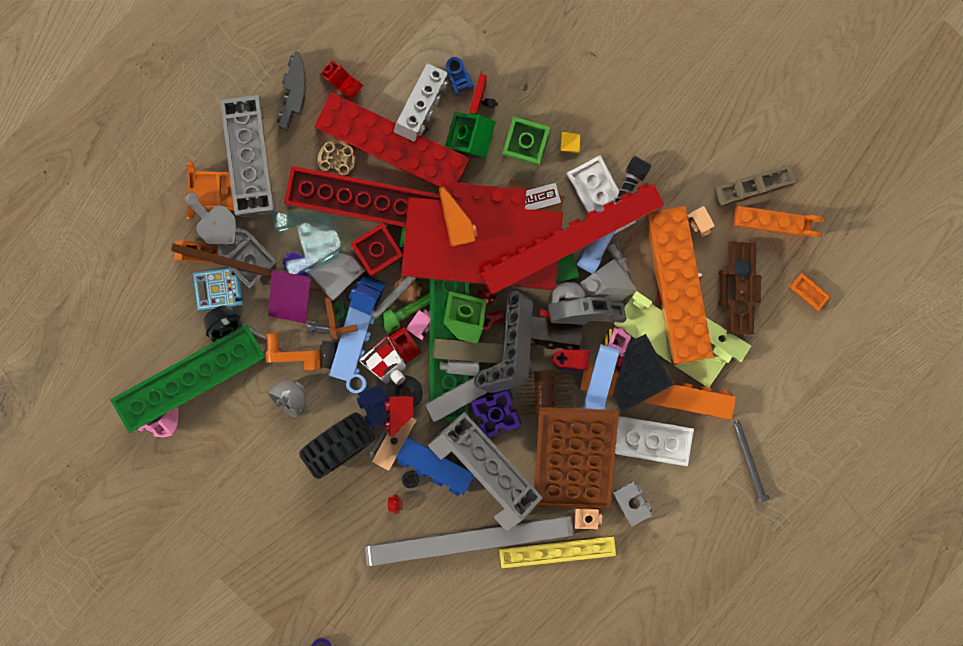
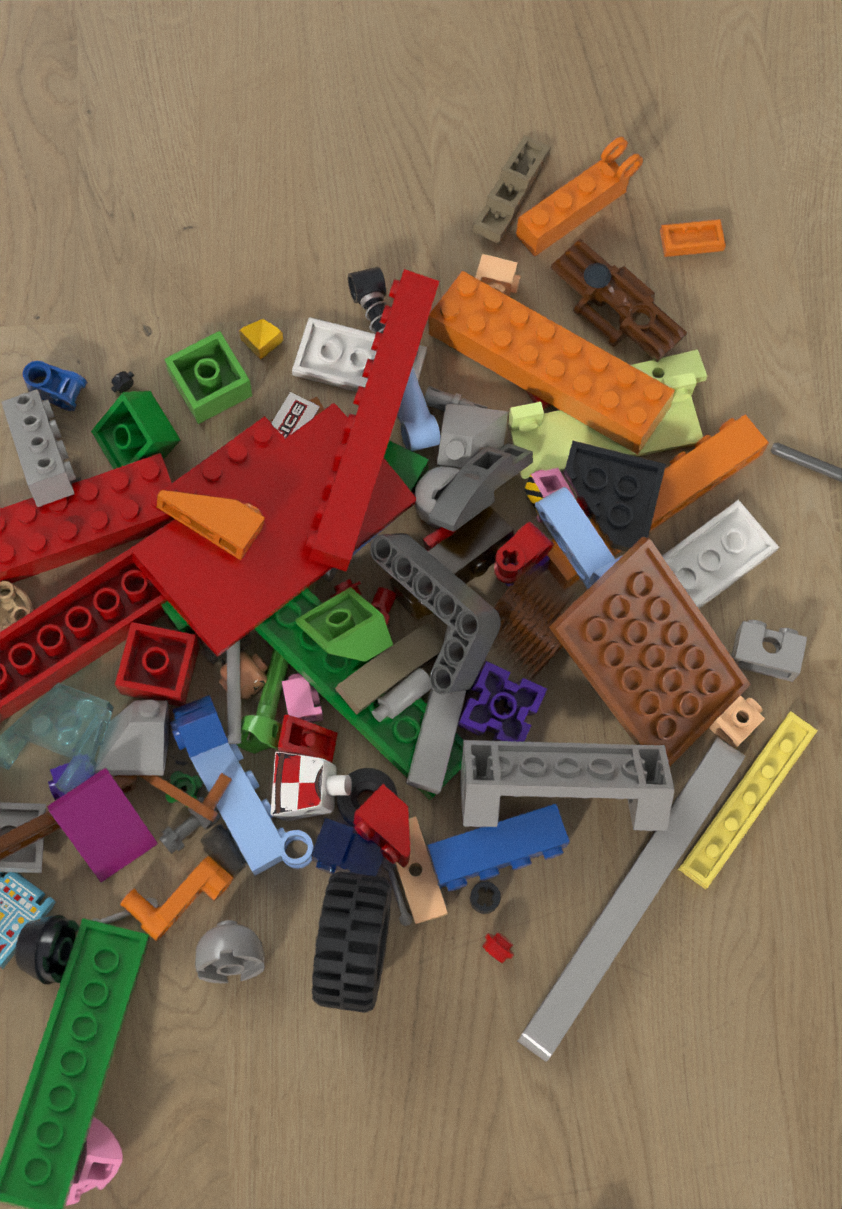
camera: 50 degrees left, 15 degrees down
(478, 94) = (96, 373): red tile -> none

